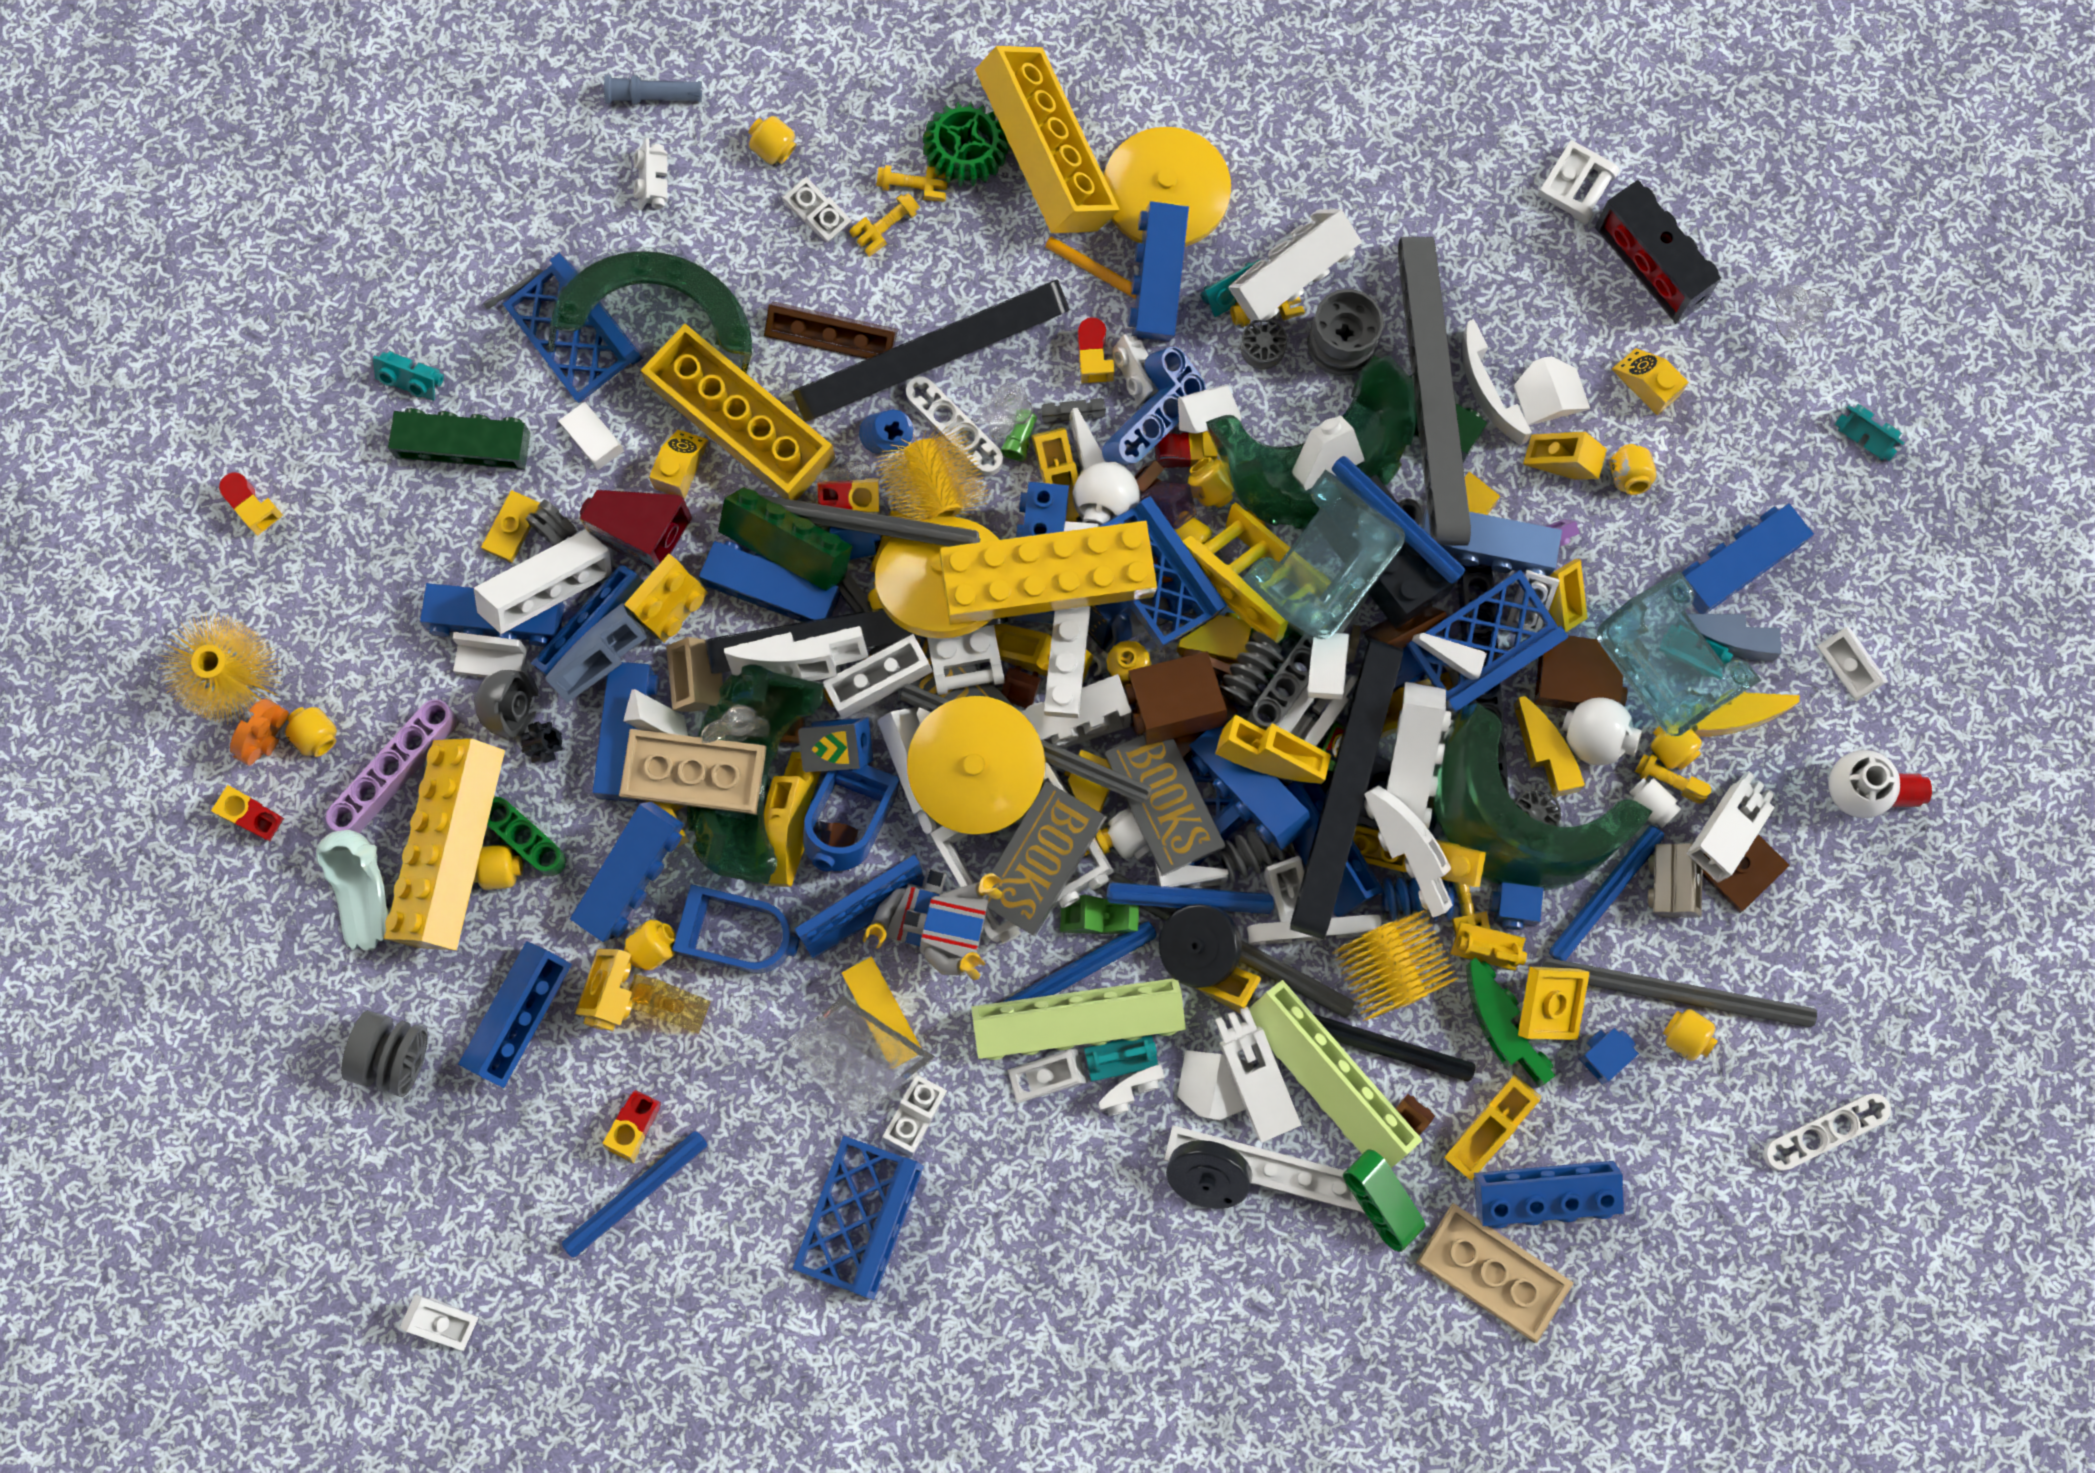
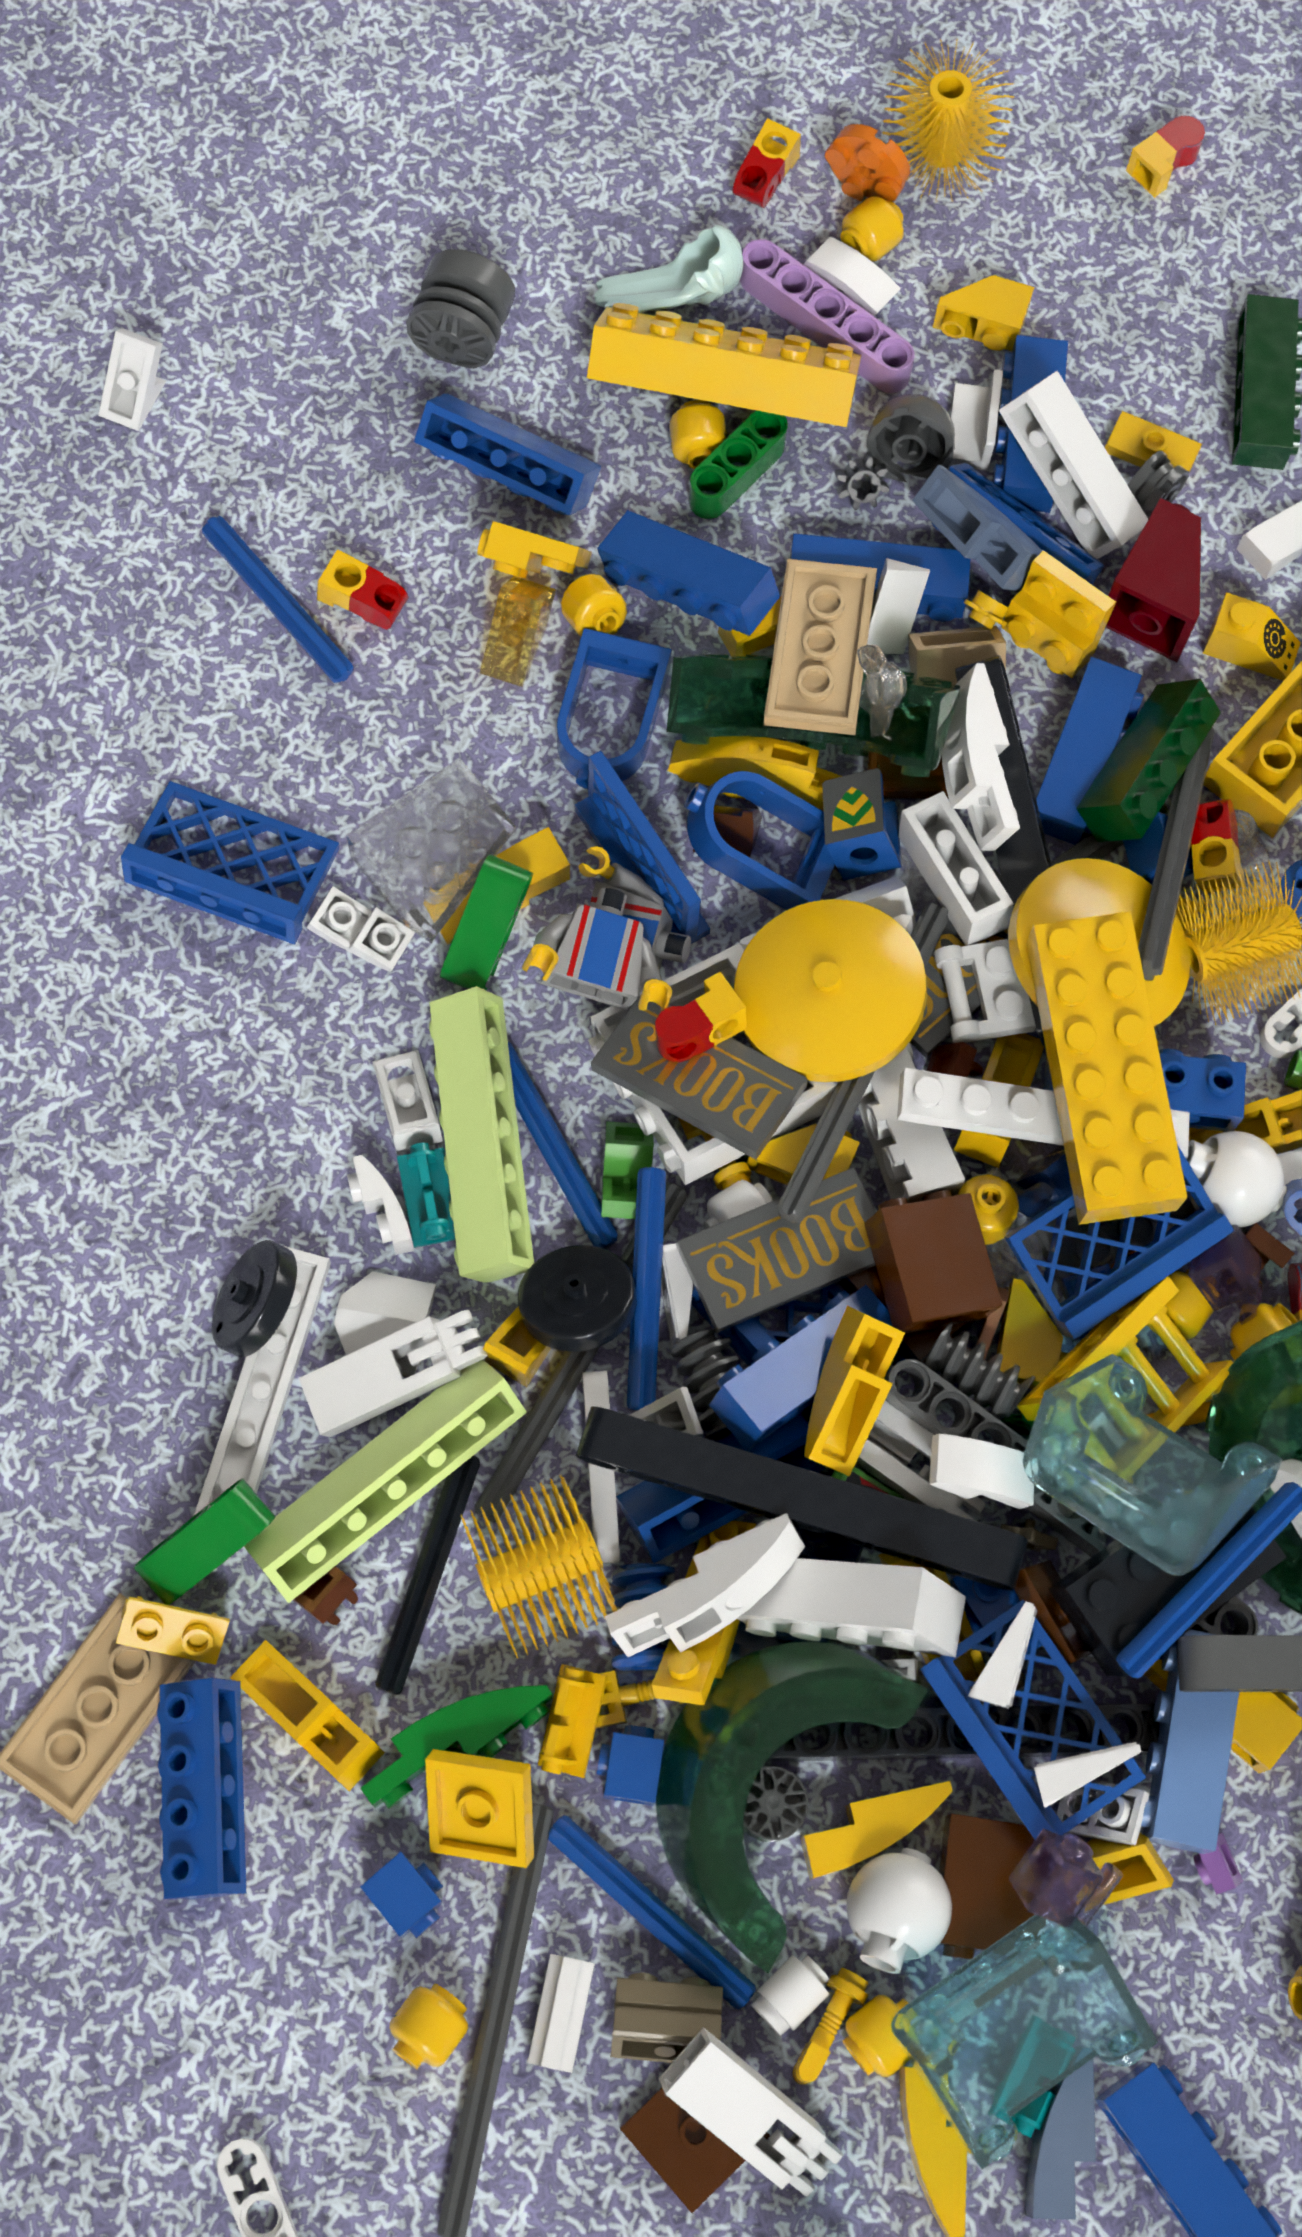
camera: 85 degrees right, 5 degrees down
(350, 751) = (853, 274): none -> white slope
(392, 642) = (985, 312): none -> yellow slope
(658, 650) = (987, 610): none -> yellow plate
(918, 1017) = (486, 923): none -> green beam
(1013, 863) = (700, 1023): none -> leg
(1444, 1213) = (172, 1630): none -> yellow hinge
(1521, 611) = (1068, 1774): none -> white slope
(1586, 625) = (1062, 1879): none -> clear purple brick
(1675, 950) = (561, 2013): none -> white axle

